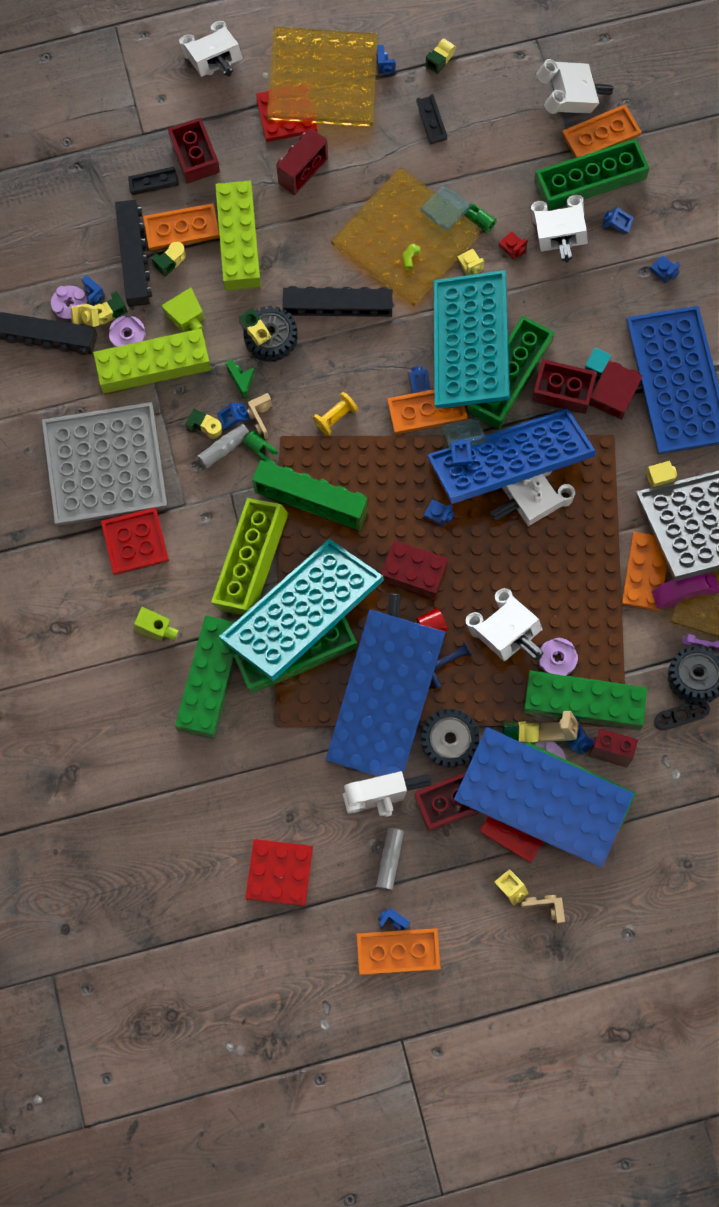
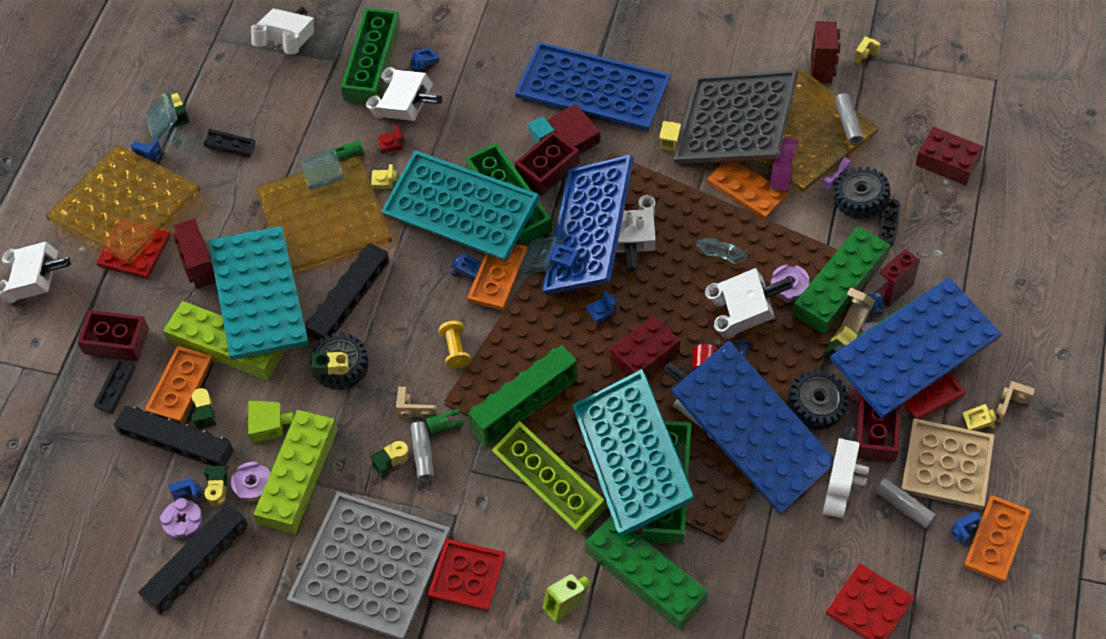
camera: 60 degrees left, 15 degrees down
(85, 314) = (209, 504): light yellow bracket -> none
(232, 415) = (397, 428): blue bracket -> none
(242, 380) = (364, 408): green slope -> none
(290, 231) = (257, 293): none -> teal plate
(411, 250) = (344, 214): lime arm -> none
(422, 48) = (161, 116): none -> clear light blue tile
(450, 878) = (948, 464): none -> tan plate
(555, 582) = (721, 249): none -> clear light blue tile
(602, 131) = (337, 34): orange plate -> none
(665, 269) = (490, 50): blue bracket -> none

